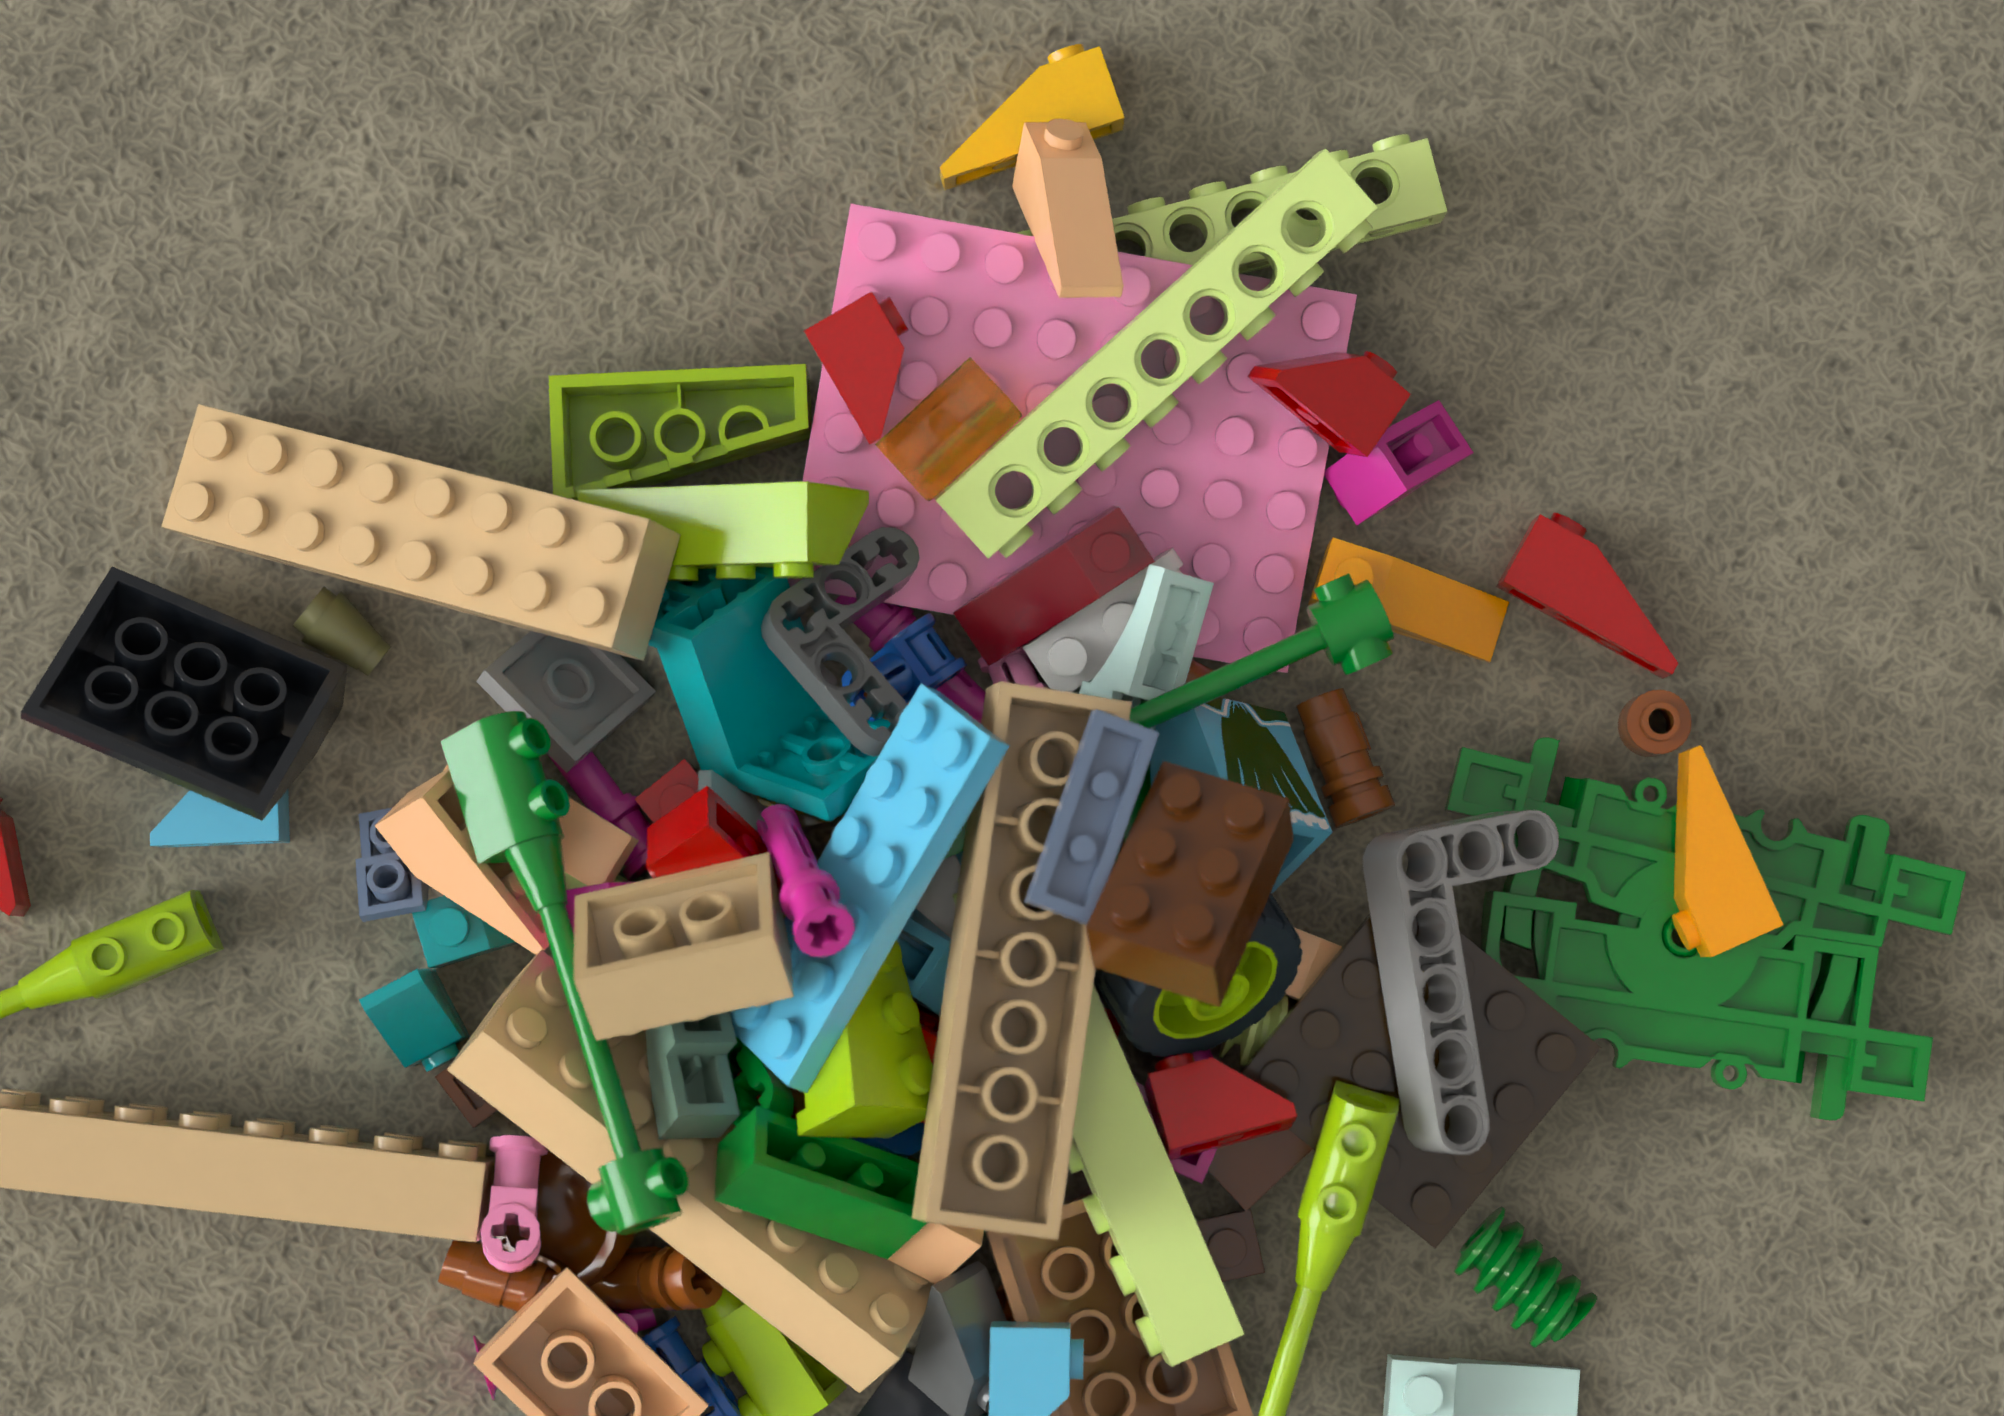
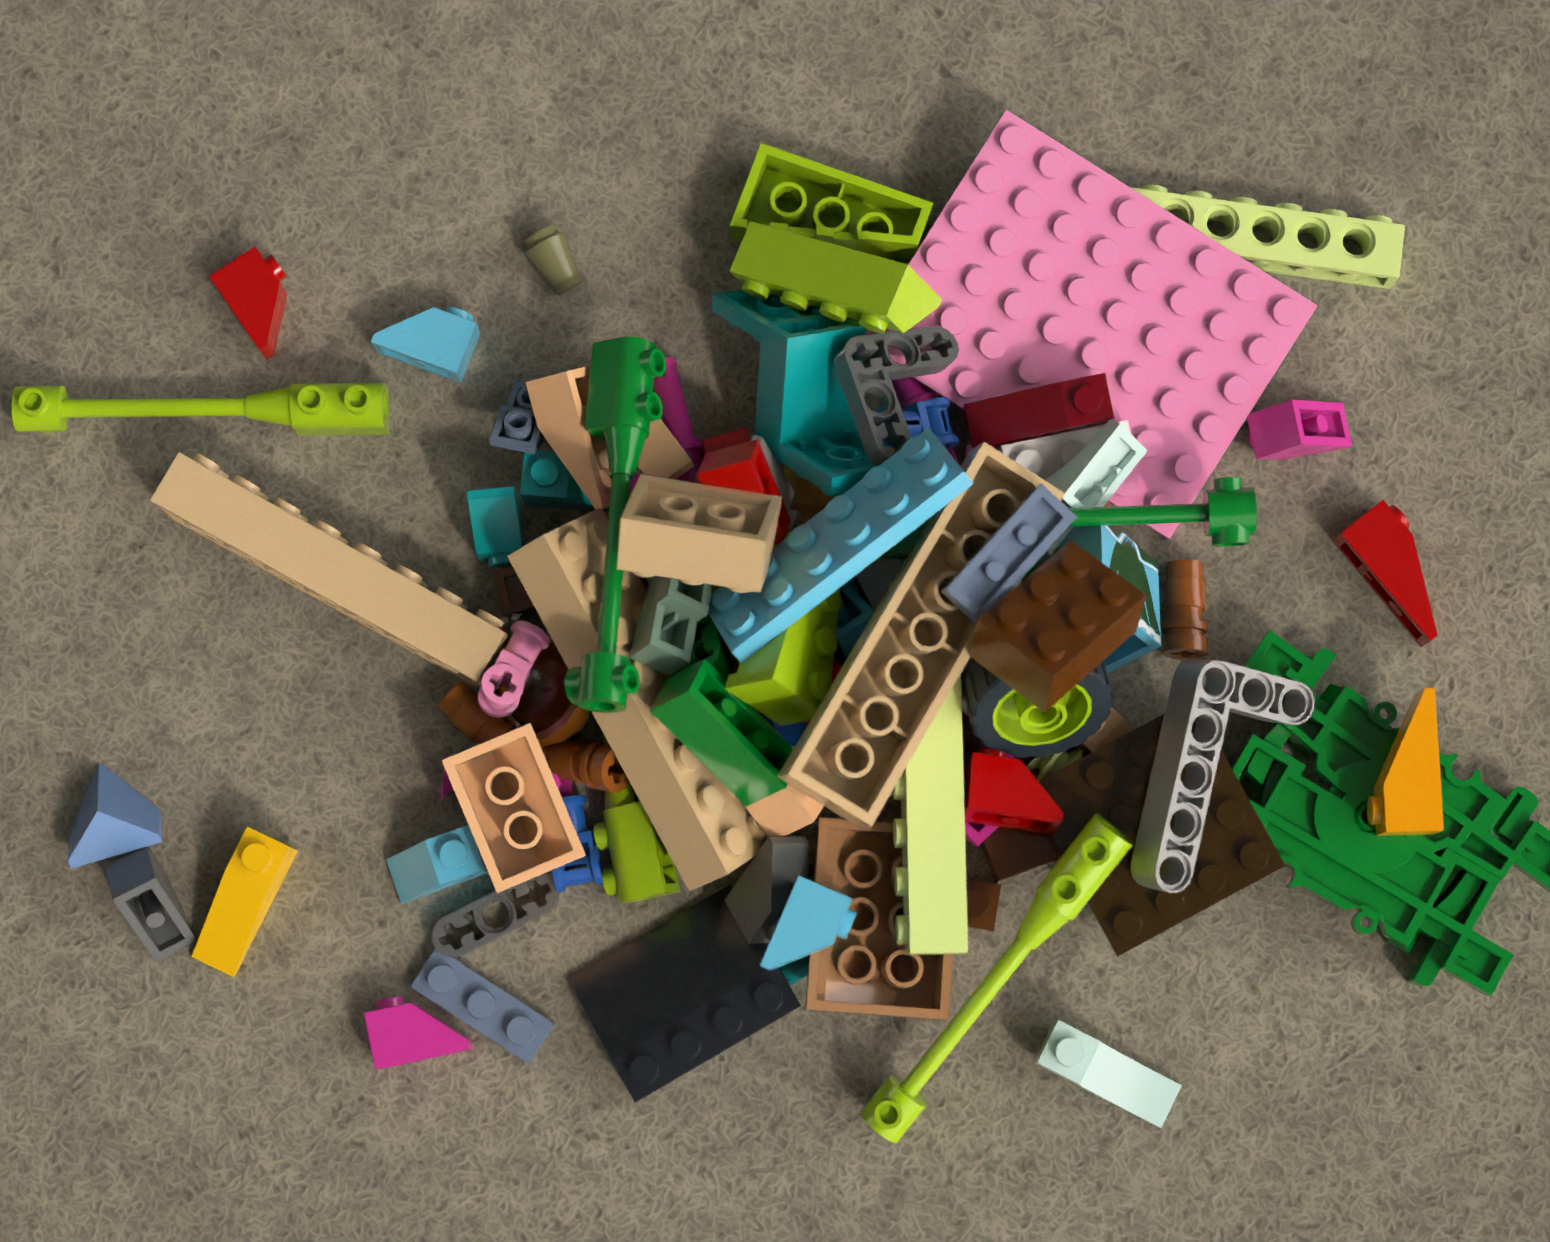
camera: 20 degrees right, 5 degrees down
(189, 694) = (440, 251): black slope -> none
(423, 531) = (638, 206): tan brick -> none
(569, 688) = (694, 350): light grey plate -> none
(808, 894) = (798, 529): dark pink pin -> none
(862, 357) = (974, 207): red slope -> none
(949, 429) = (1011, 282): clear yellow slope -> none
(1068, 208) = (1149, 169): light nougat slope -> none
(1069, 87) = (1161, 112): yellow slope -> none
(1317, 187) = (1322, 220): yellowish green brick -> none
(1337, 396) = (1278, 363): red slope -> none
(1419, 600) = (1282, 530): light orange slope -> none
(1523, 1281) = (1166, 1007): green piece -> none
(1635, 728) = (1391, 672): dark orange brick -> none

